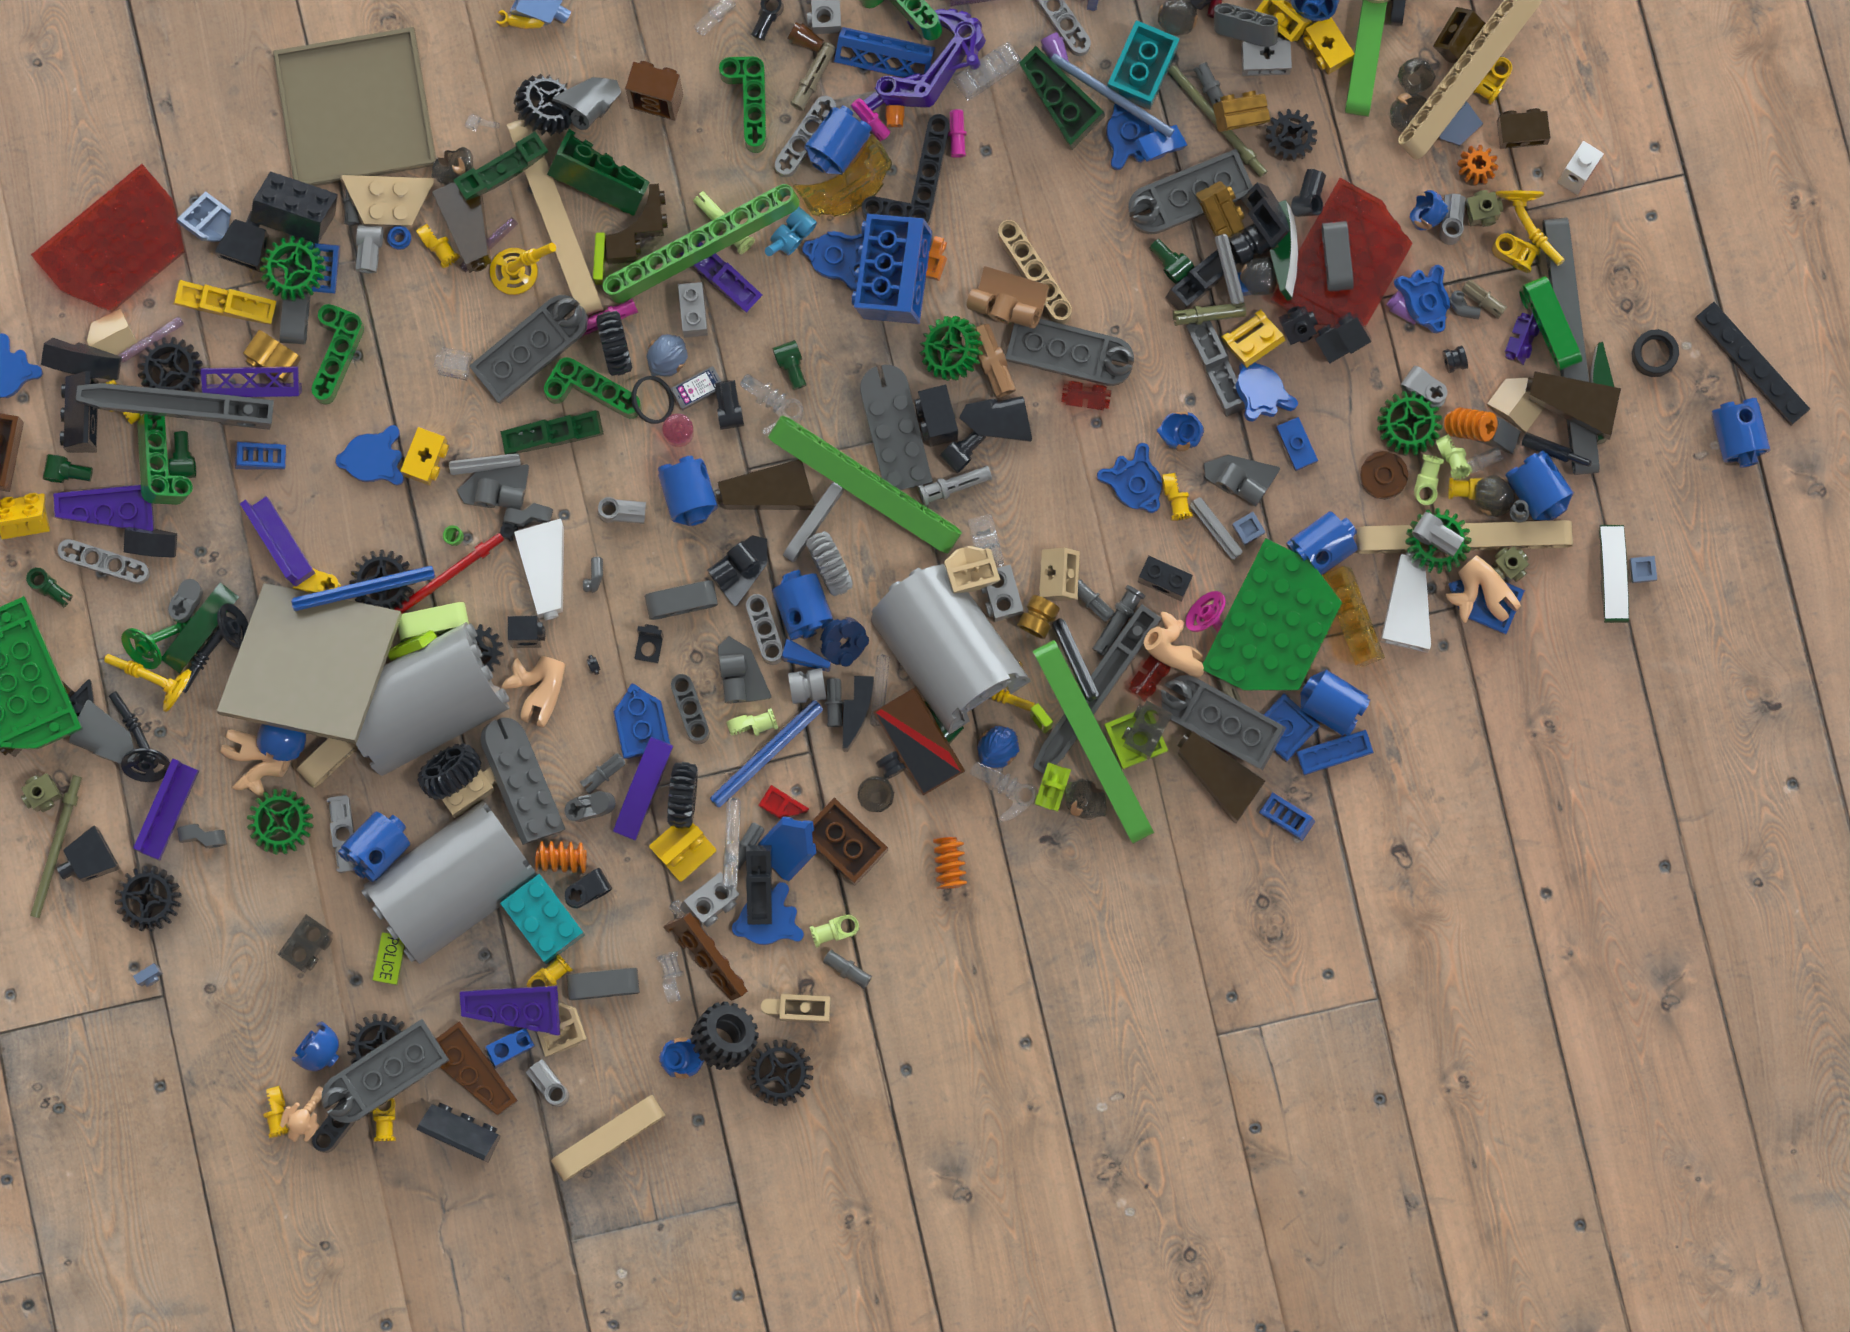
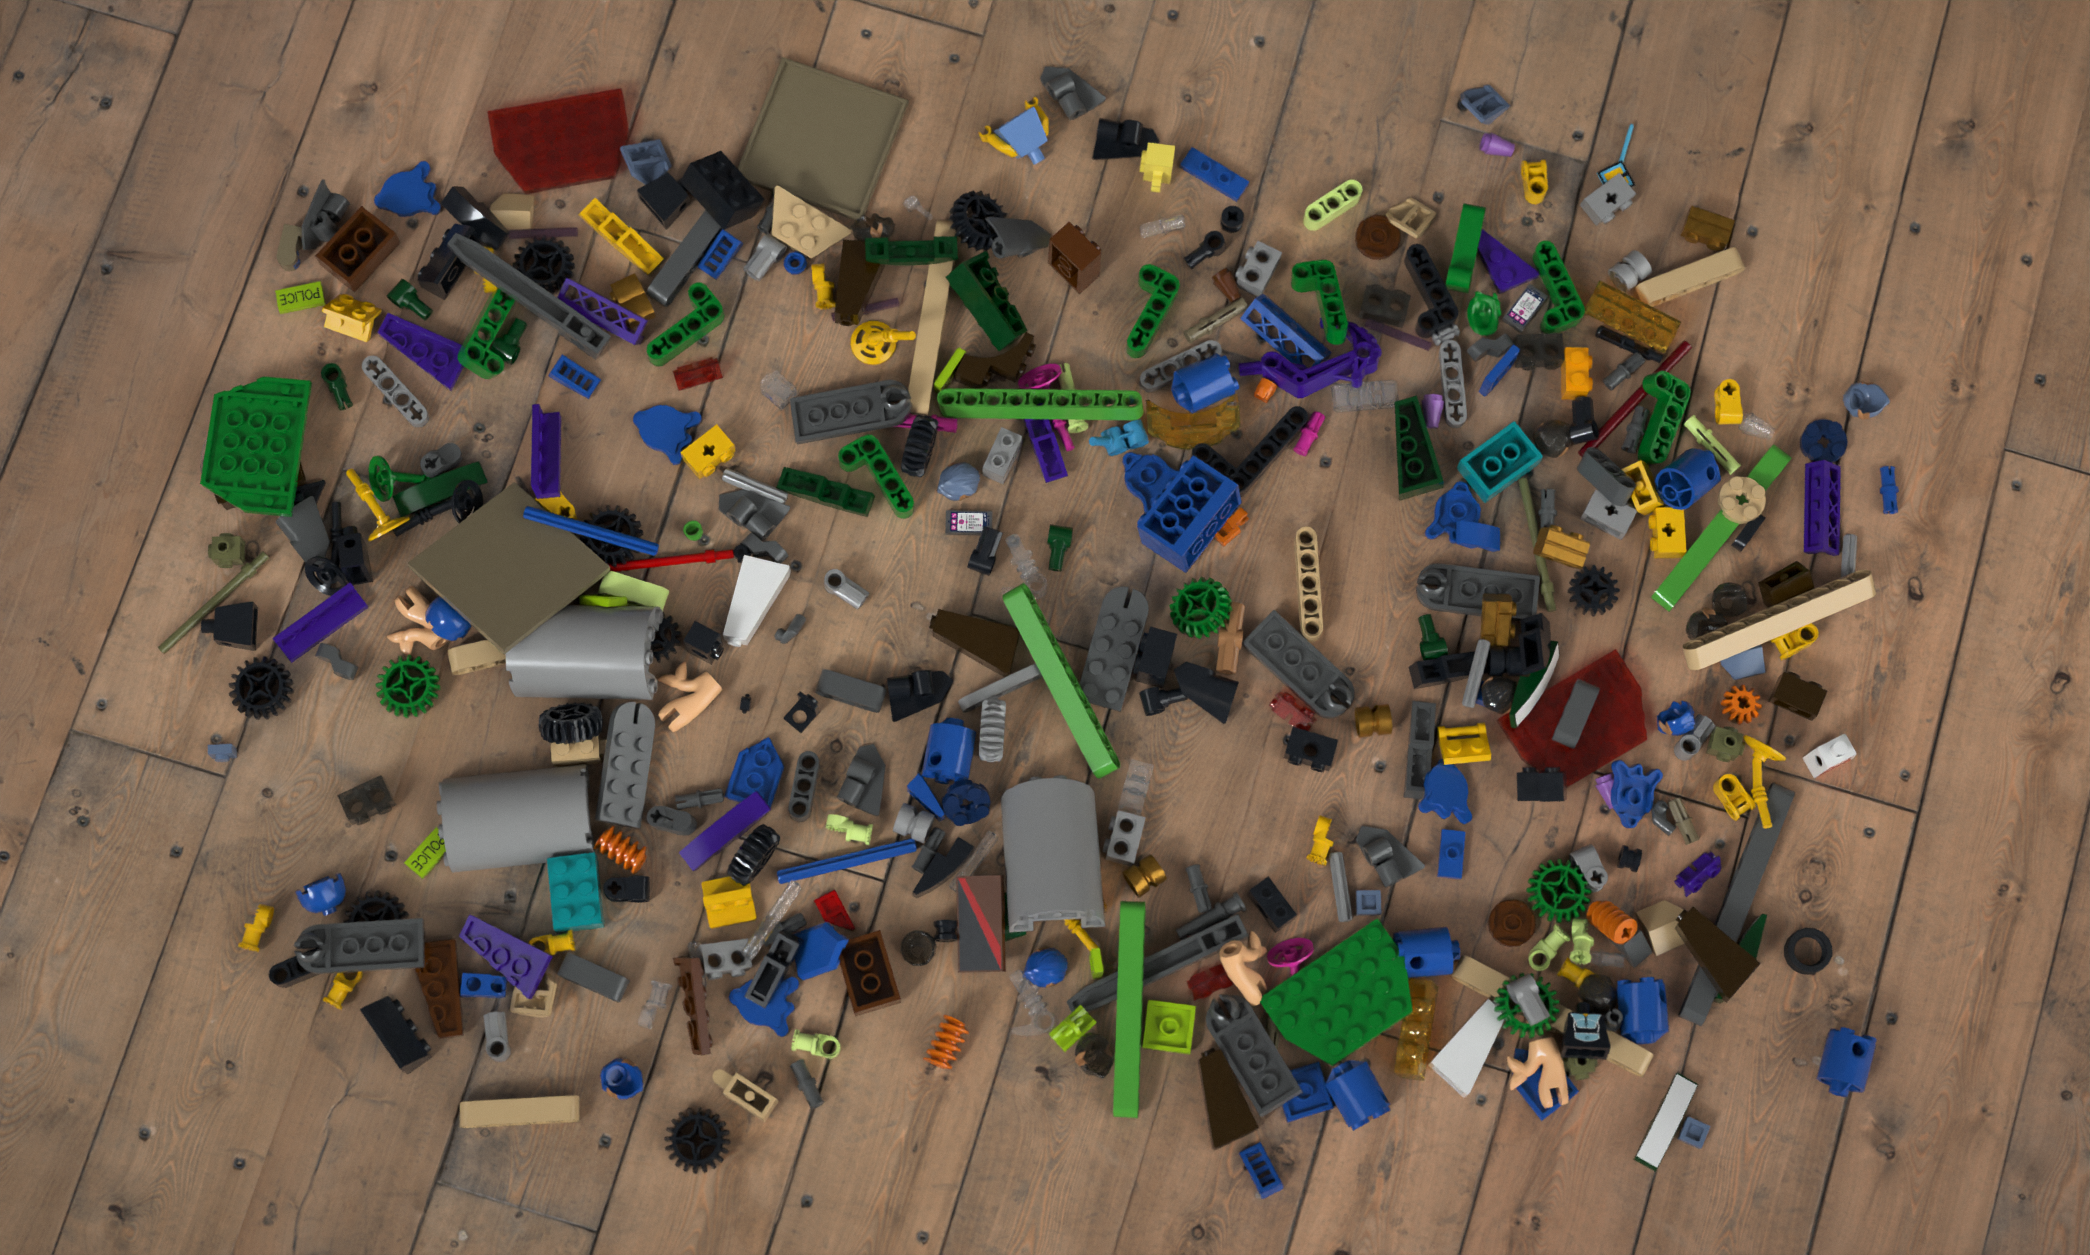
camera: 25 degrees right, 5 degrees down
(150, 543) = (441, 397): black slope -> none
(160, 732) = (354, 557): none -> black torso
(295, 259) = (702, 225): green gear -> none
(300, 1120) = (270, 946): light nougat piece -> none
(342, 818) = (448, 742): light grey piece -> none
(375, 845) = (472, 750): blue cylinder -> none
(378, 383) = (688, 377): none -> clear red hinge
(636, 407) = (906, 511): black piece -> none
(673, 424) = (934, 554): clear pink head -> none
(687, 491) = (909, 602): blue cylinder -> none
(691, 223) = (1039, 377): none -> dark pink dish
(713, 1047) = (651, 1086): black tyre -> none
(760, 618) = (906, 743): light grey beam -> none
(865, 113) = (1244, 391): dark pink axle -> none
(944, 488) = (1127, 722): light grey pin -> none
(971, 569) = (1108, 802): tan slope -> none
(1008, 298) = (1273, 593): medium nougat panel -> none
(1059, 574) = (1183, 849): tan brick -> none
(1075, 659) = (1154, 930): black axle -> none
(1112, 95) = (1458, 472): sand blue piece -> none
(1132, 411) = (1324, 747): none -> black brick
(1135, 481) = (1293, 808): blue tile -> none
(1151, 731) = (1184, 1029): clear smoke brick -> none
(1161, 363) = (1373, 720): none -> pearl gold wheel
(1181, 430) = (1357, 786): blue hair -> none
(1198, 315) = (1430, 698): olive pin -> none
(1298, 324) = (1509, 753): black brick -> none
(1309, 200) = (1579, 652): black piece -> none
(1334, 752) = (1333, 1138): blue plate -> none
(1503, 537) = (1585, 1034): none -> black torso
(1542, 301) = (1731, 873): green beam -> none
(1553, 449) = (1671, 983): black axle -> none
(1752, 363) = (1889, 1008): black plate -> none

